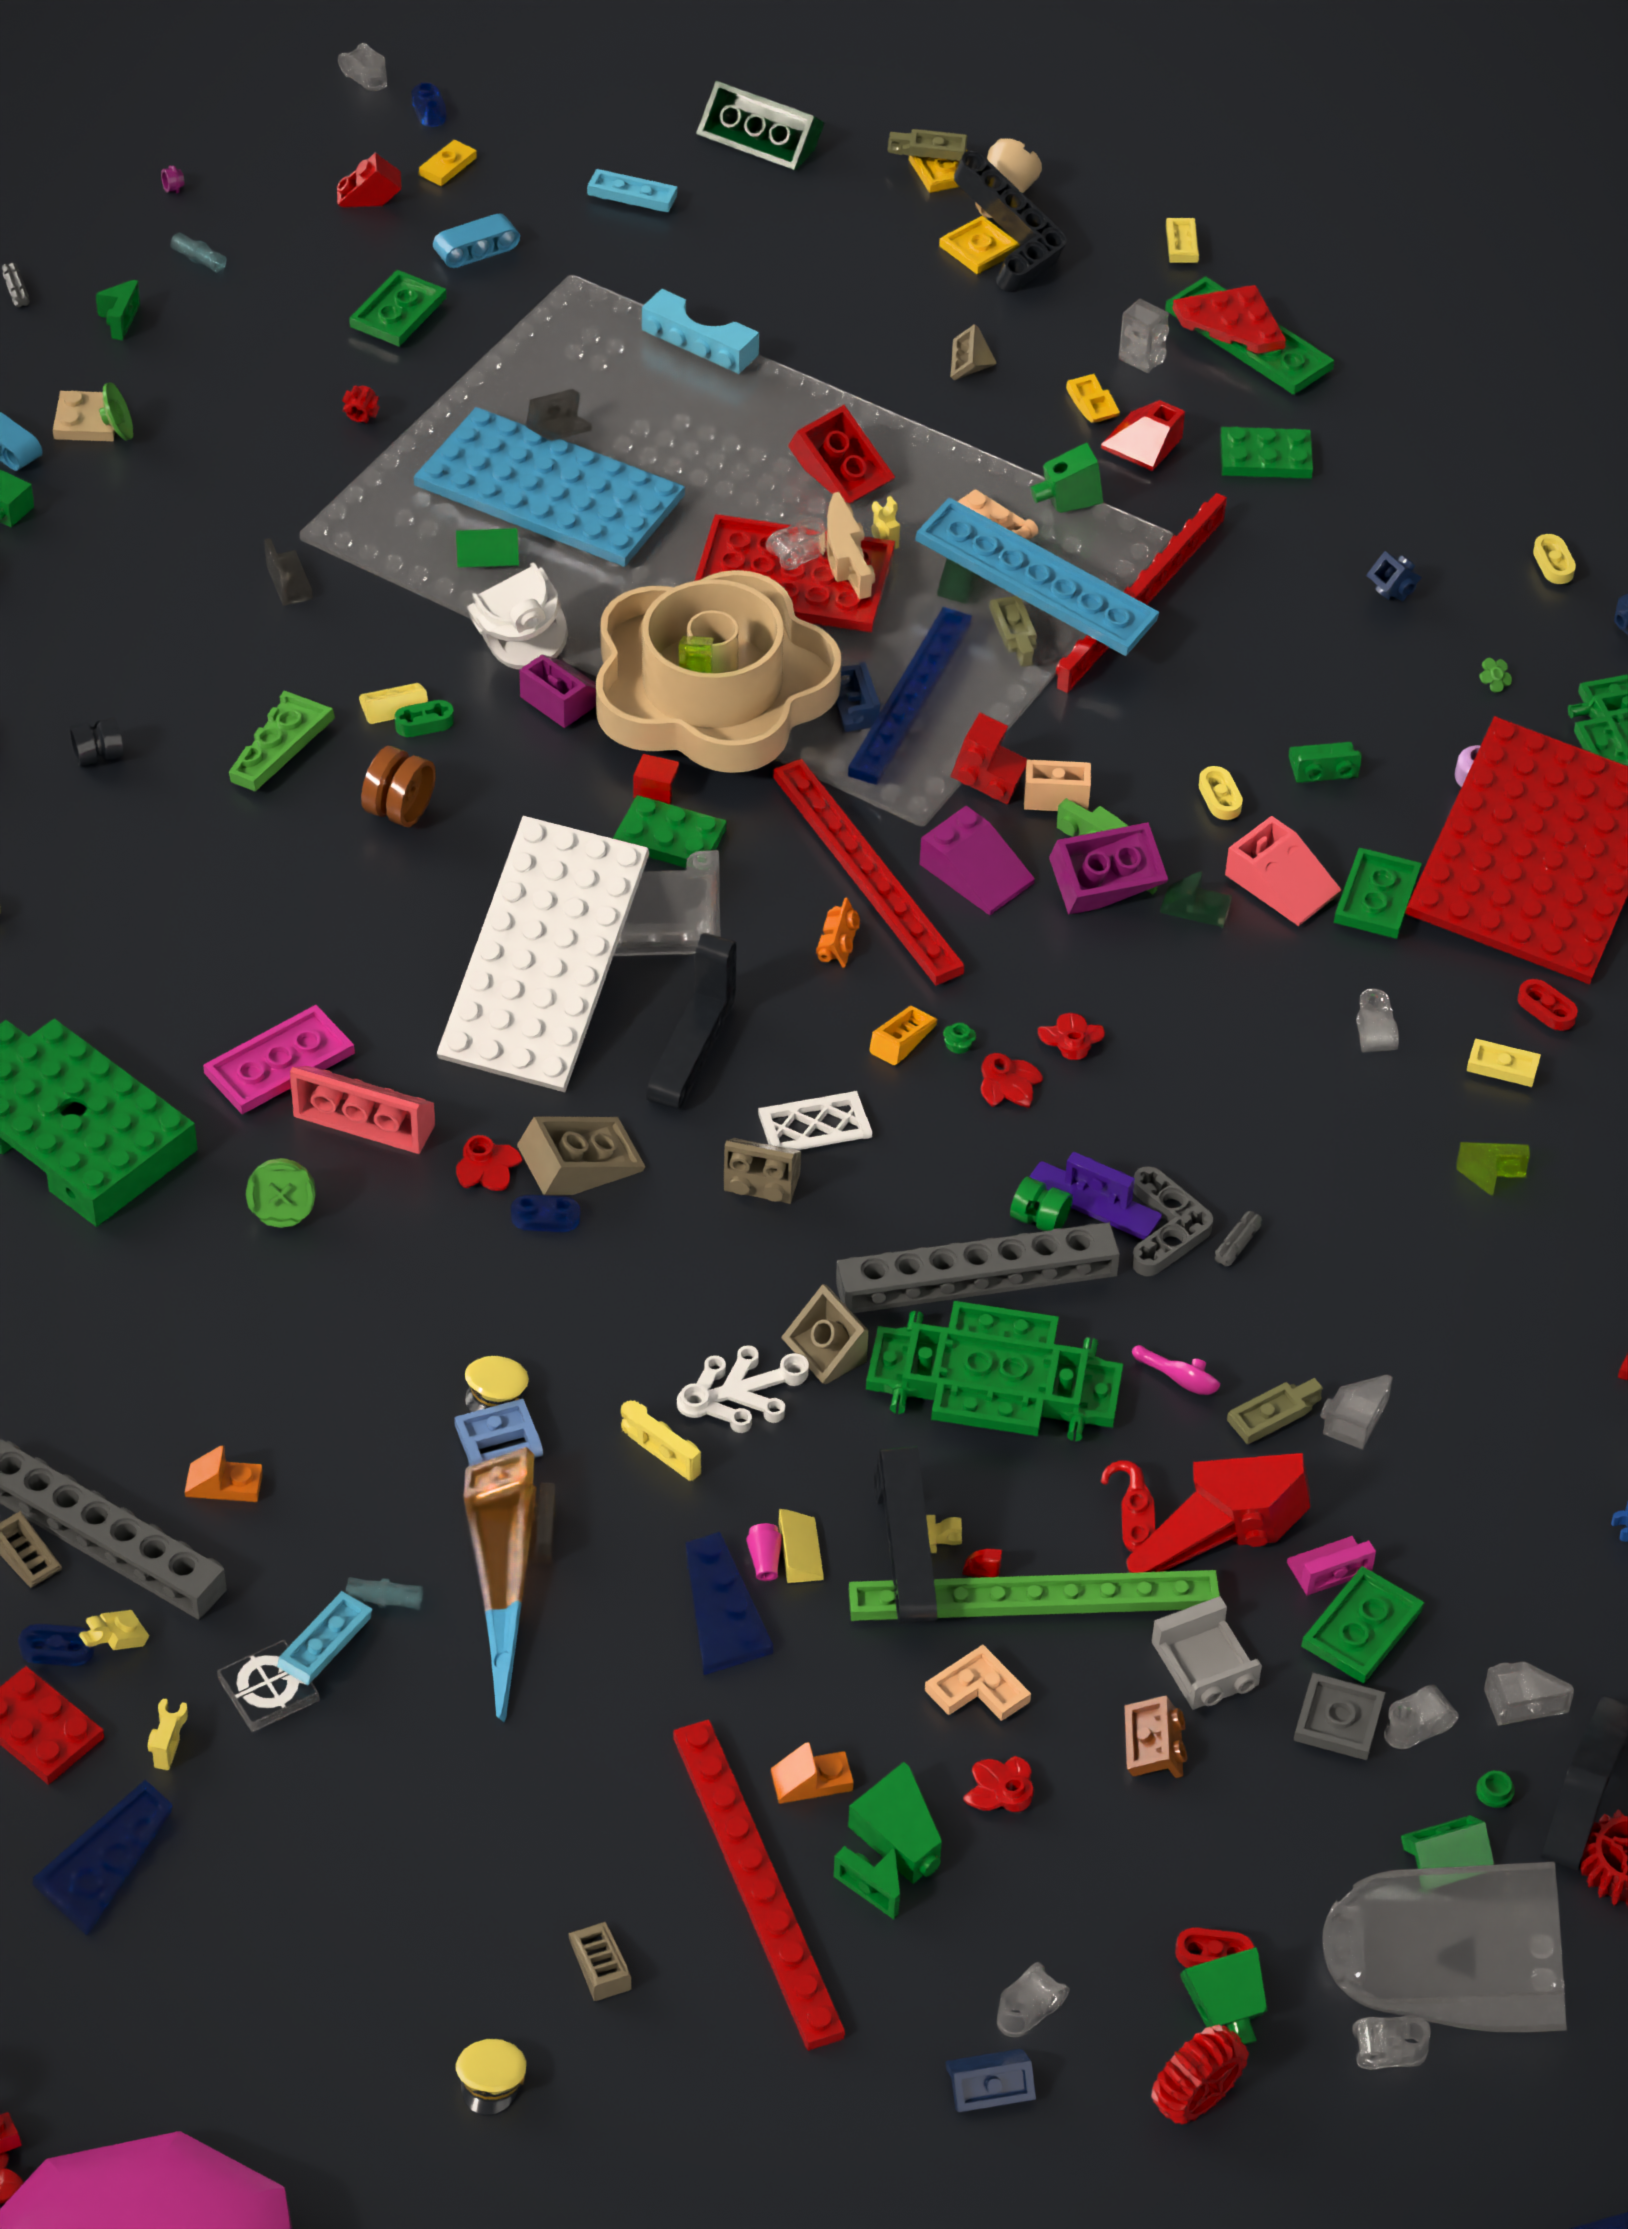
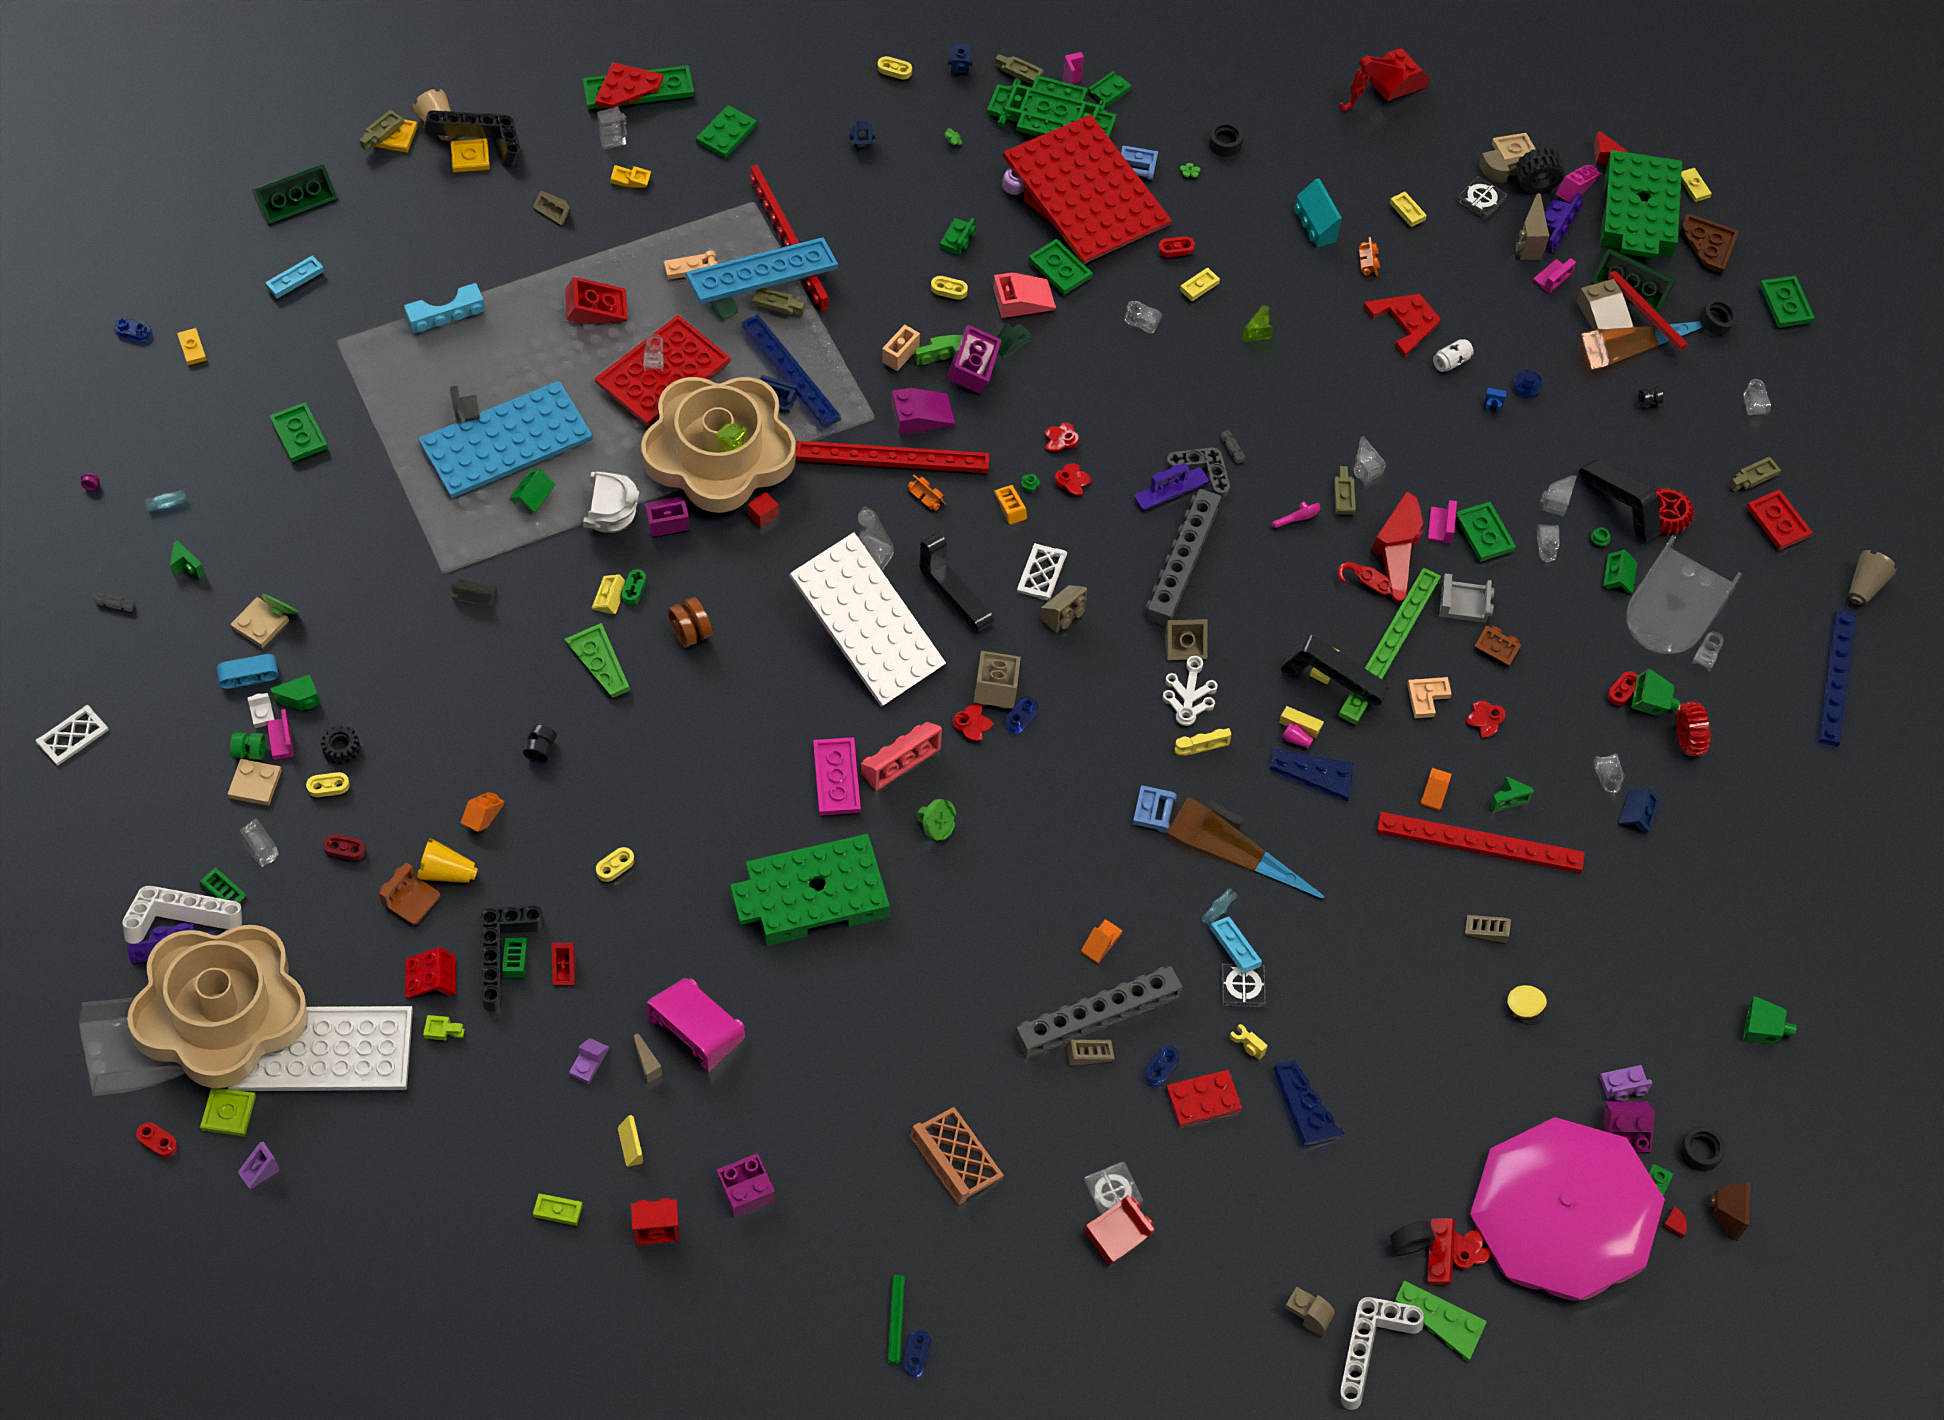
camera: 60 degrees left, 10 degrees up
(117, 1628) = (1171, 1032): light yellow plate -> none
(360, 403) = (367, 489): red gear -> none
(364, 67) = (75, 340): clear piece -> none
(370, 184) = (183, 391): red slope -> none
(476, 240) = (274, 367): dark azure beam -> none
(494, 1382) = (1121, 793): light yellow piece -> none
(669, 830) = (801, 525): green plate -> none
(845, 549) = (673, 339): tan slope -> none
(884, 521) = (663, 311): light yellow plate -> none
(898, 1819) = (1486, 768): green slope -> none
(983, 1563) = (1361, 653): red tile -> none
(986, 763) = (865, 364): red brick -> none
(995, 1371) = (1252, 586): green piece -> none
(1051, 1211) = (1165, 510): green wheel -> none
(1070, 481) = (697, 217): green torso -> none
(1147, 434) = (678, 169): slope -> none
(1182, 240) = (543, 71): light yellow plate -> none
(1339, 1716) = (1529, 569): dark grey plate -> none

